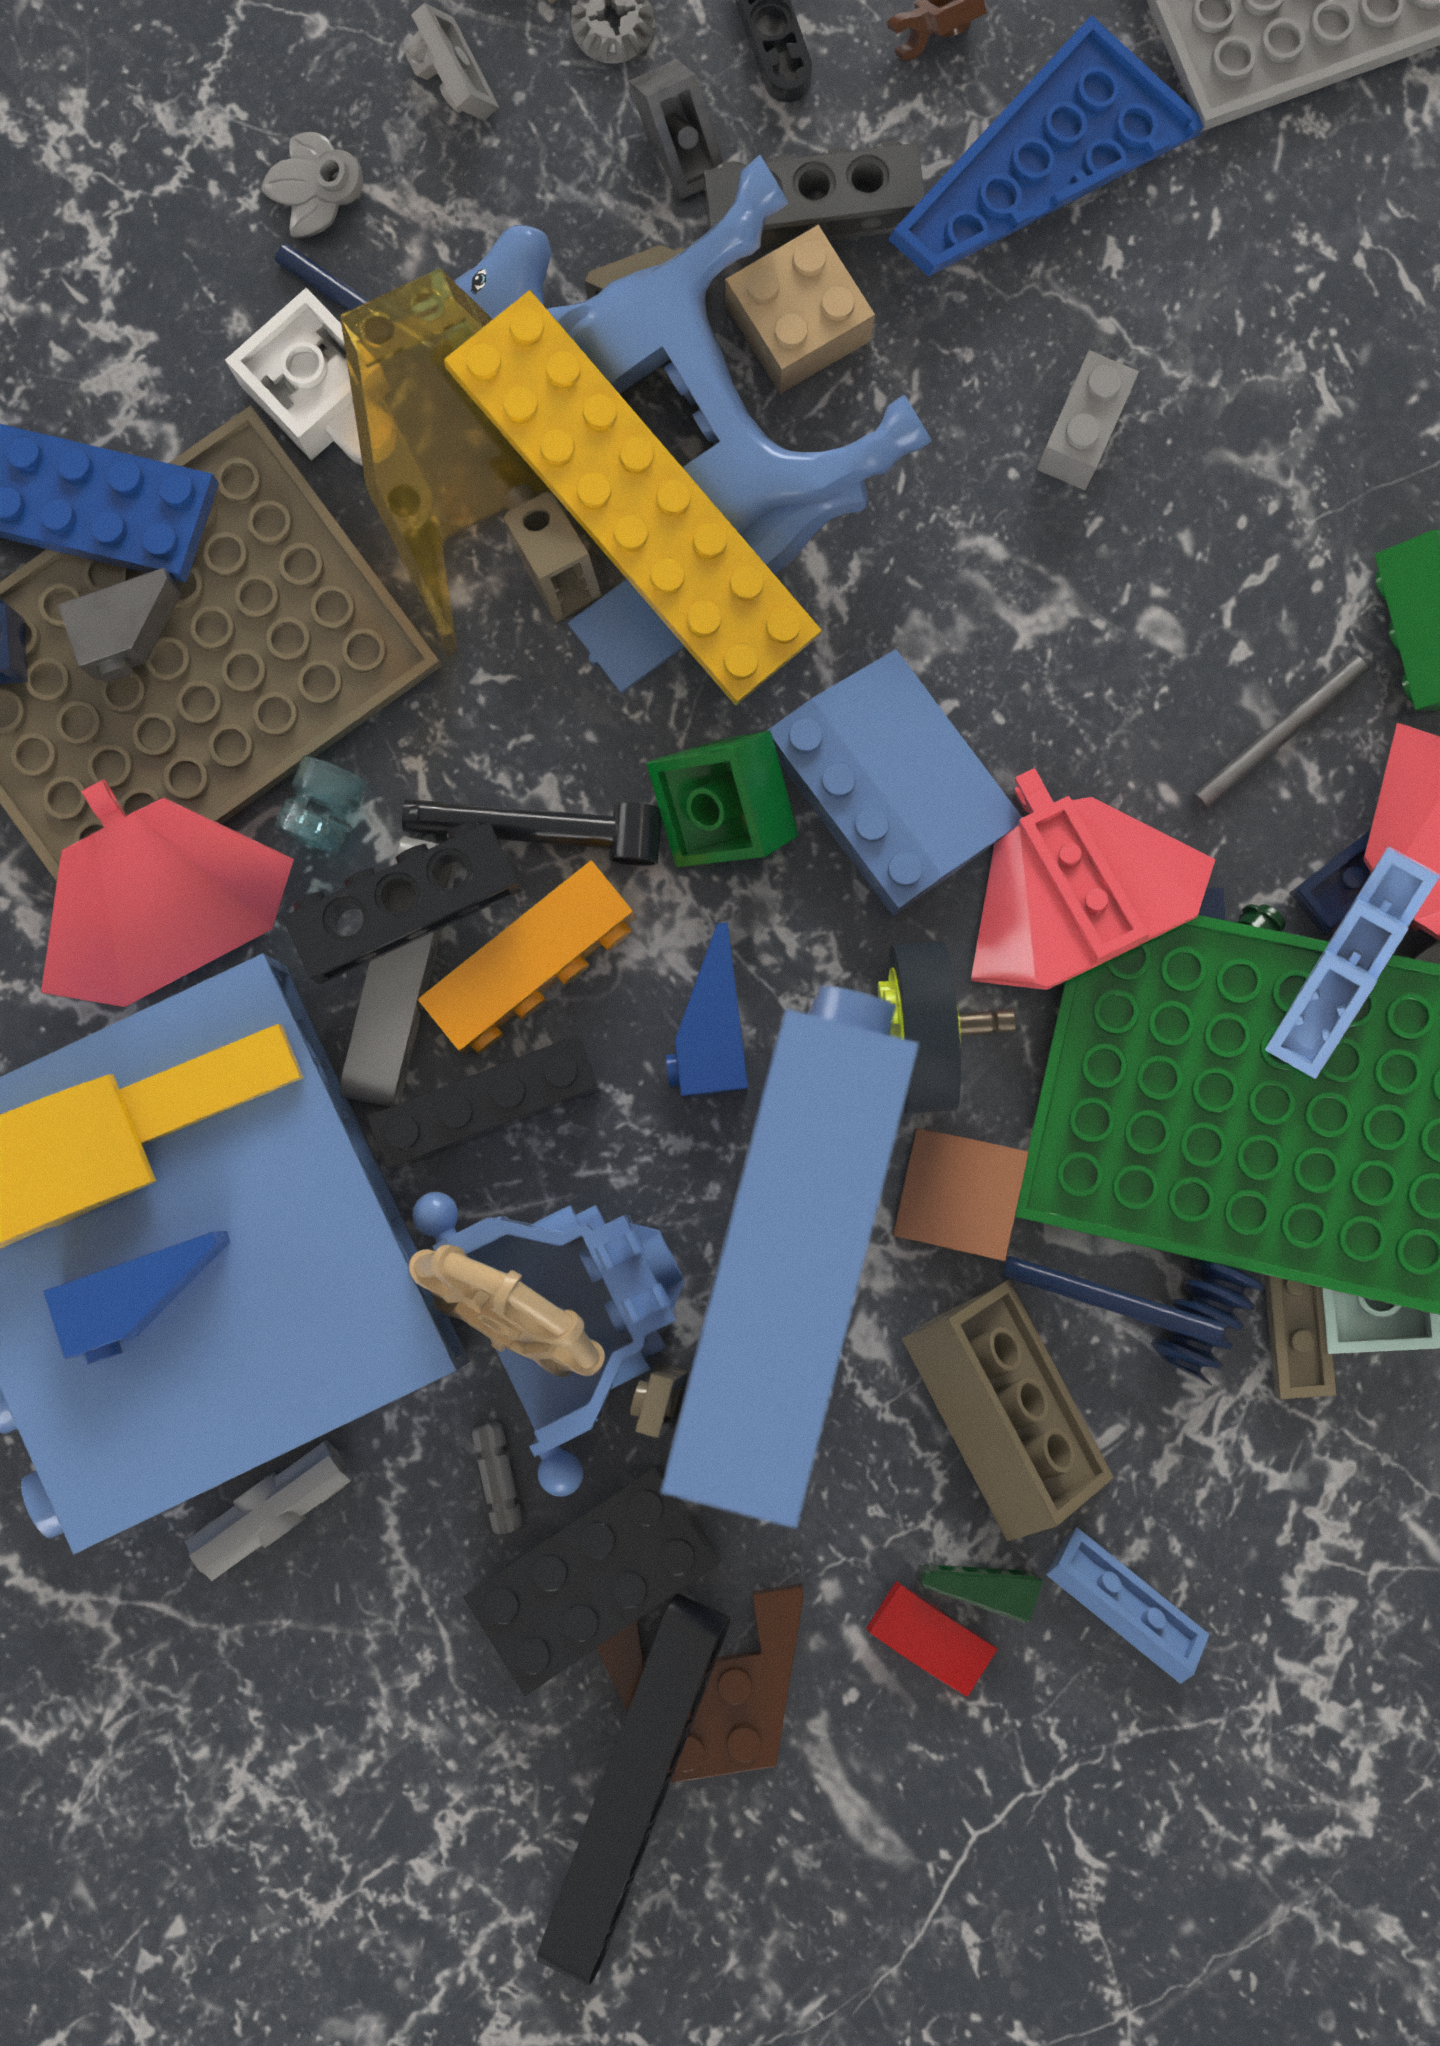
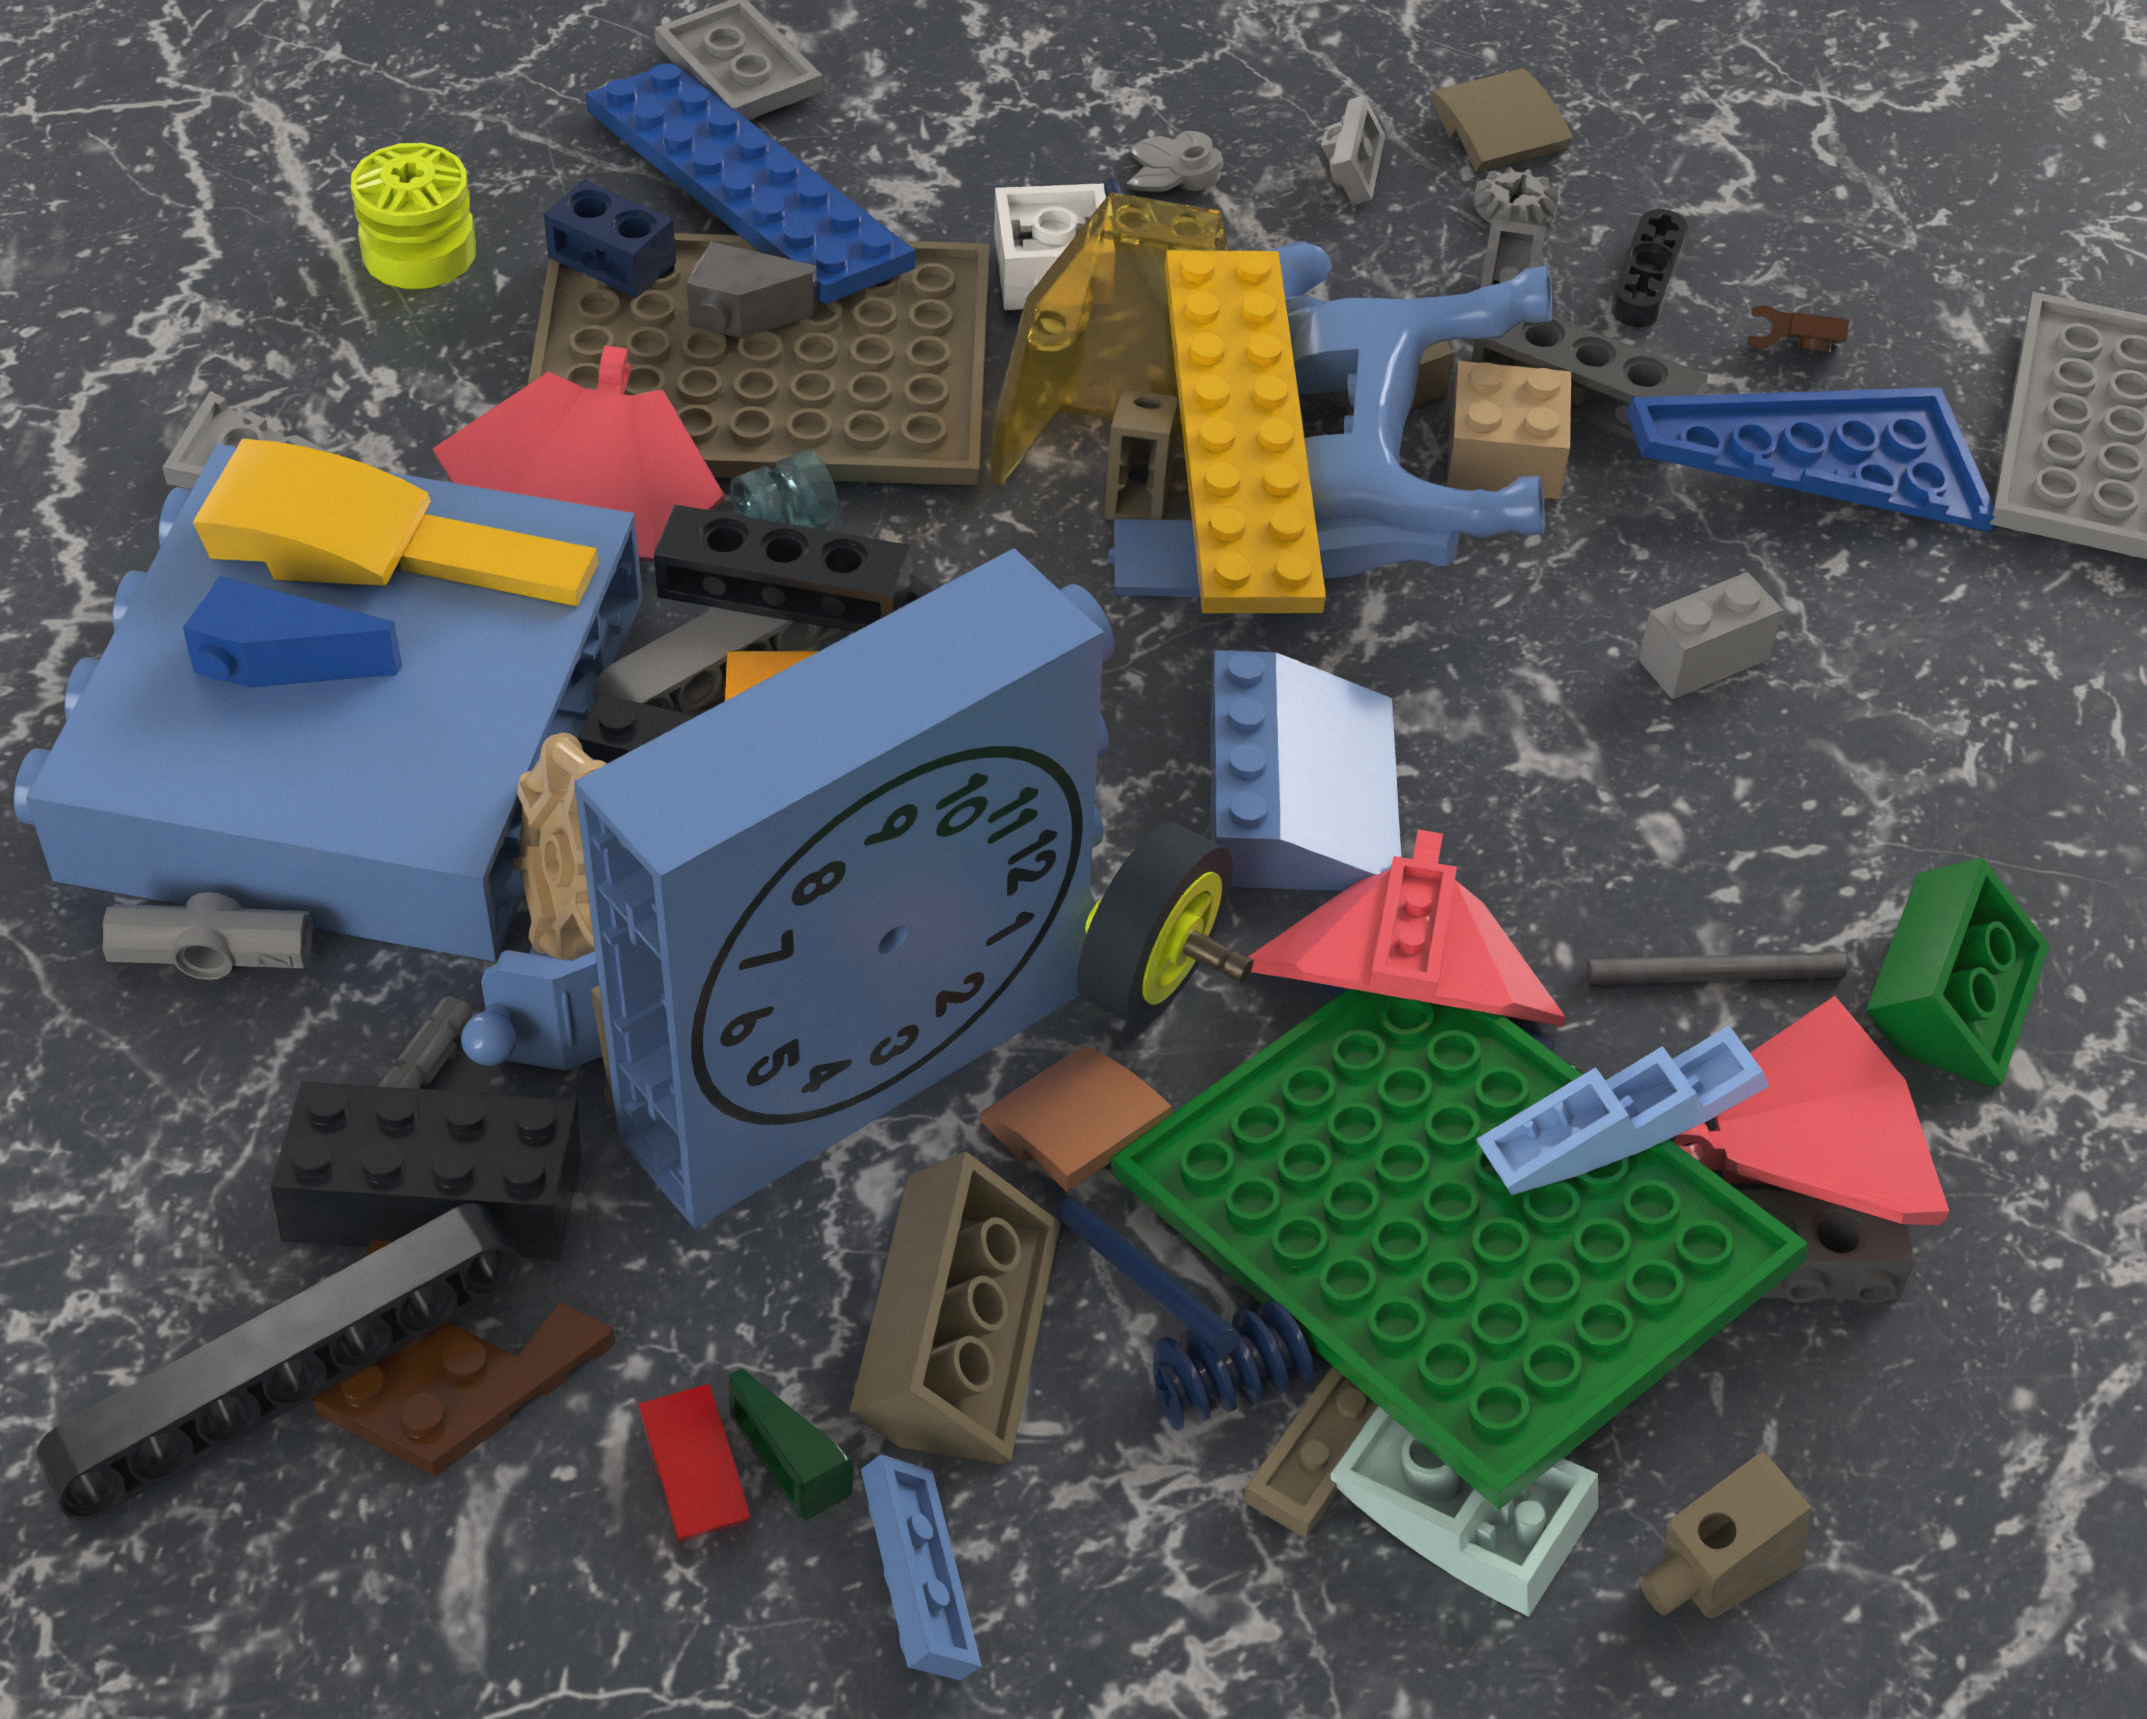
camera: 35 degrees right, 35 degrees down
(723, 800) = (1152, 683): green slope -> none

